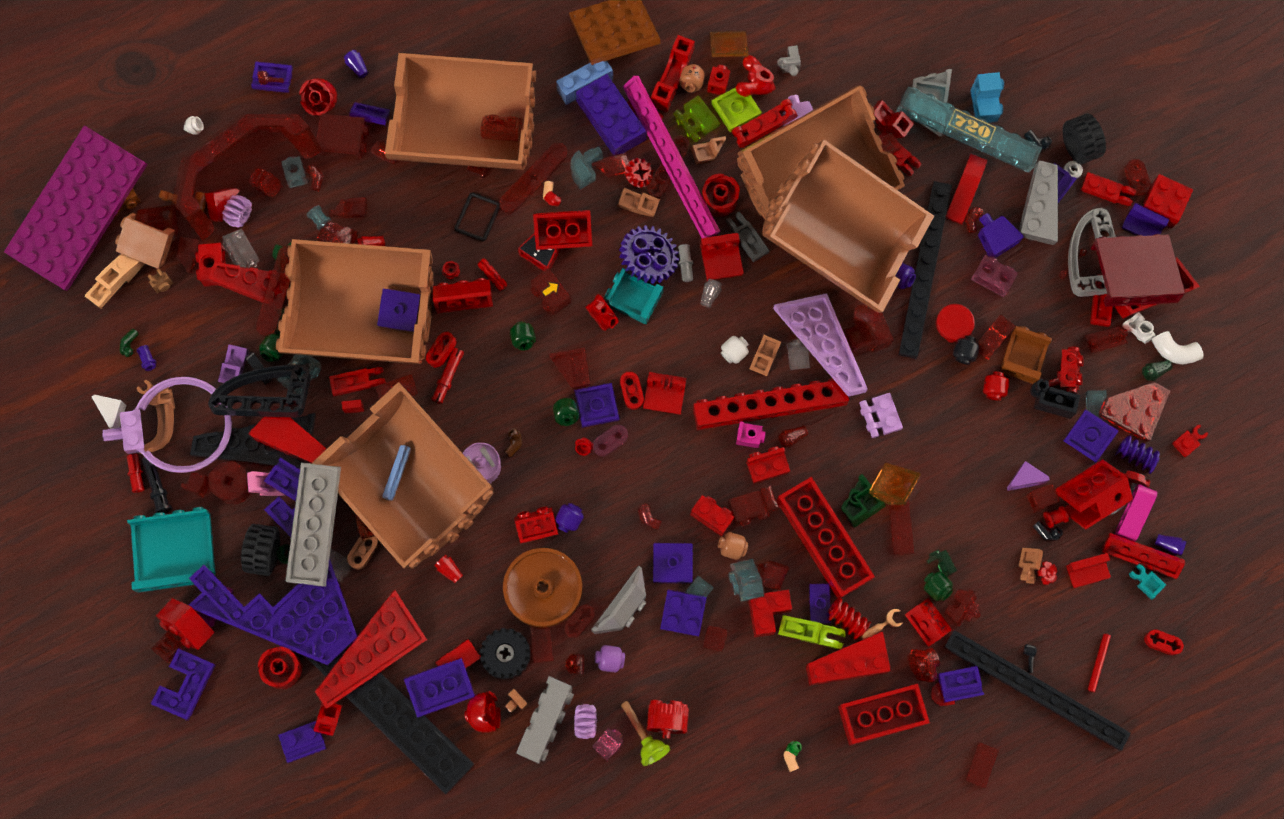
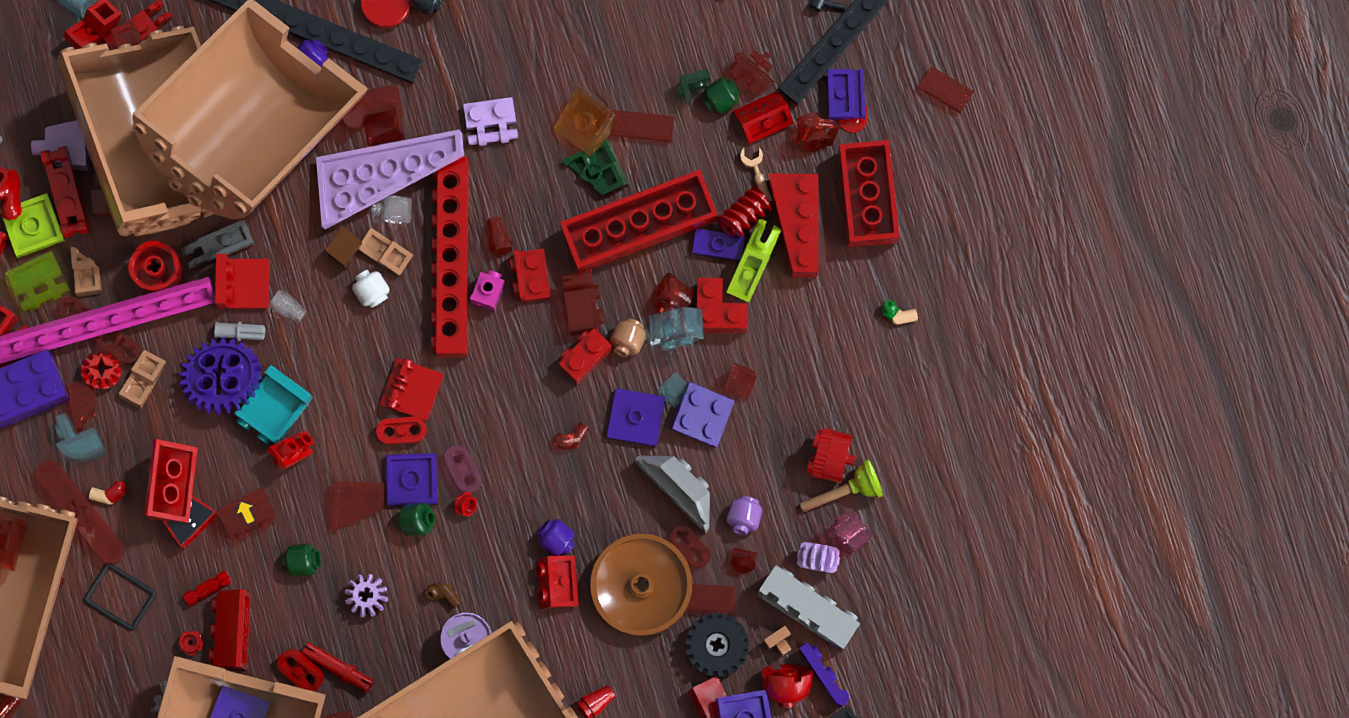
camera: 80 degrees left, 5 degrees up
(494, 742) = (824, 675): none -> dark purple plate
(496, 384) = (371, 602): none -> lavender gear
(761, 323) = (343, 247): none -> reddish brown panel

